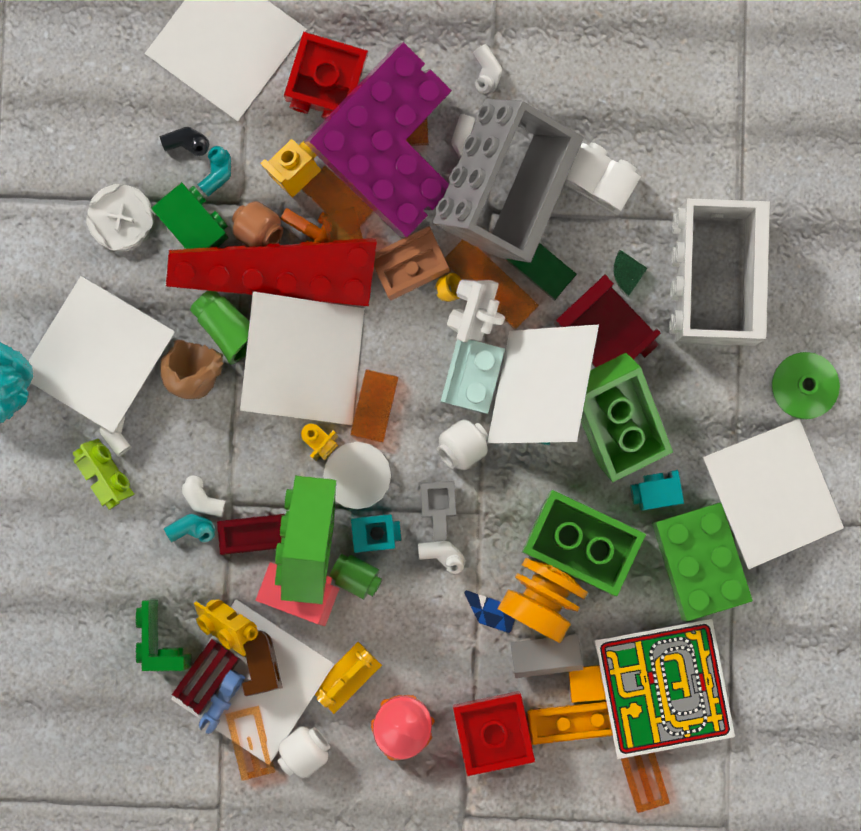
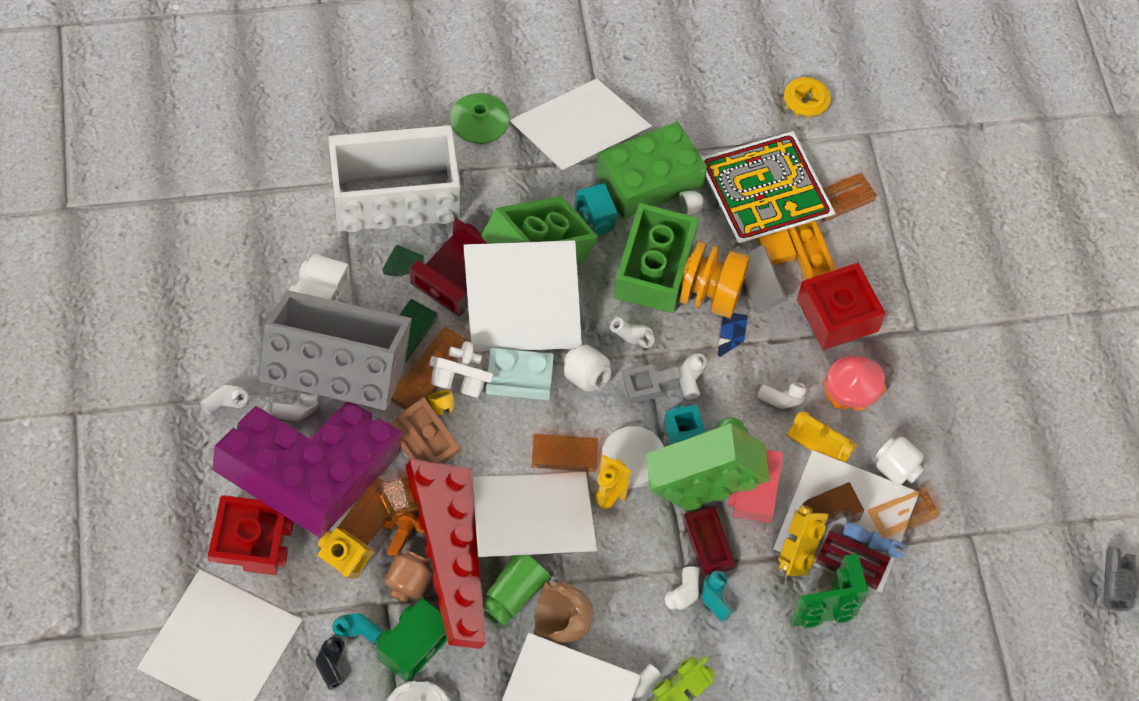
camera: 105 degrees left, 25 degrees down
(399, 648) = (783, 399): none -> white arm
(502, 502) = (633, 333): none -> white arm
(656, 599) = (690, 202): none -> white hinge
(797, 762) = (799, 89): none -> yellow gear

